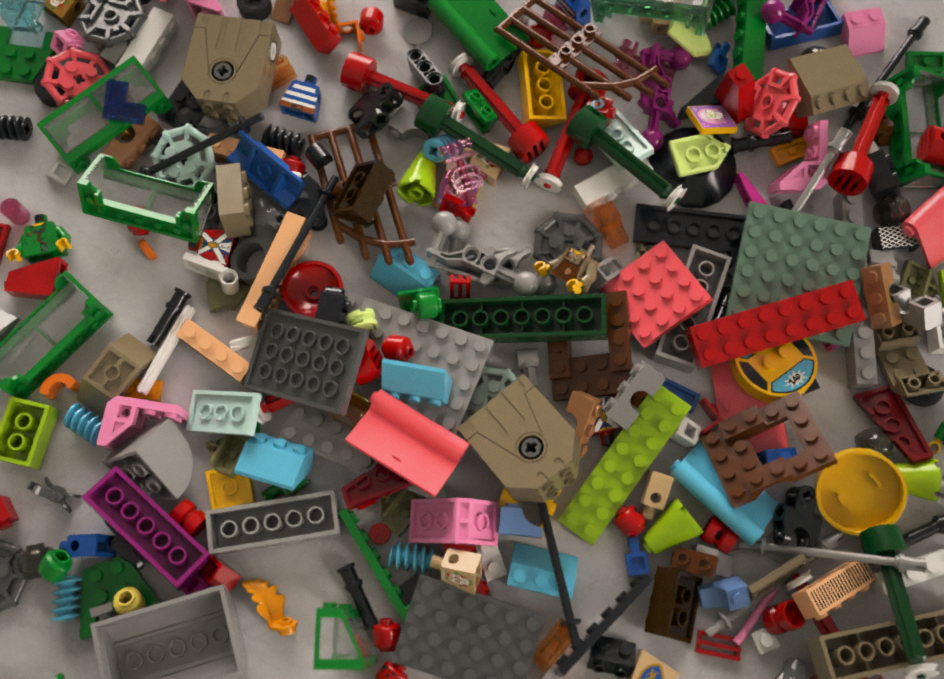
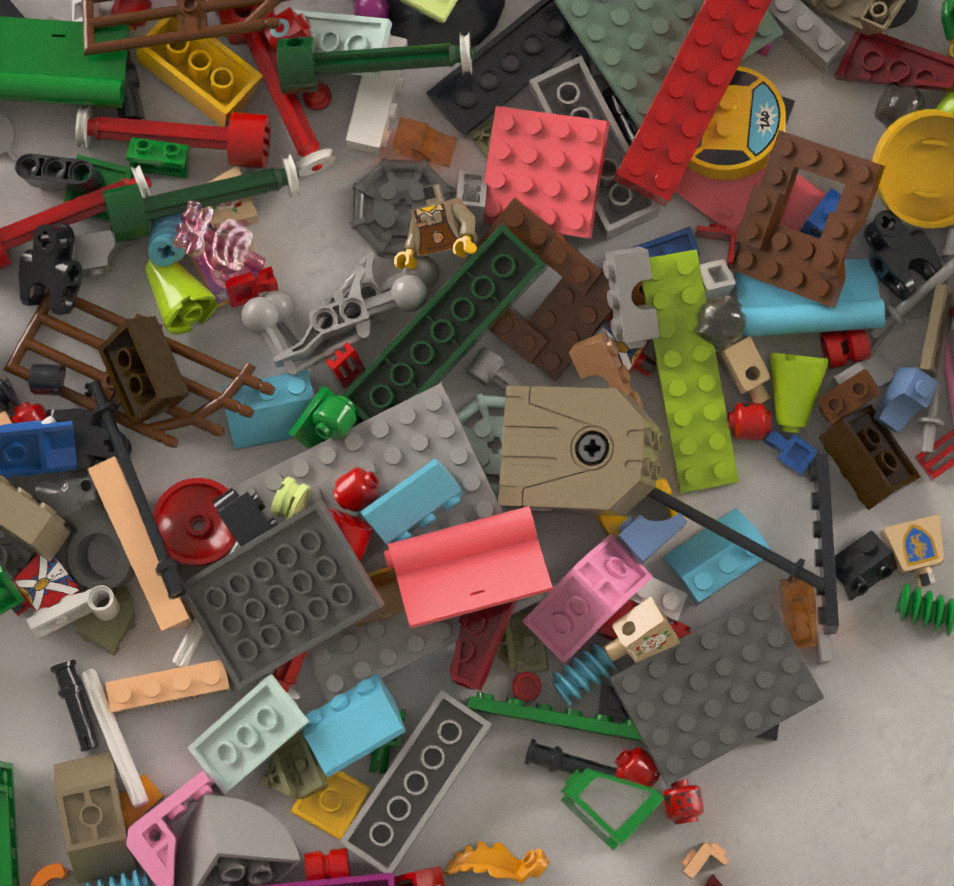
camera: 45 degrees left, 5 degrees up
(666, 454) = (720, 321): none -> clear smoke piece

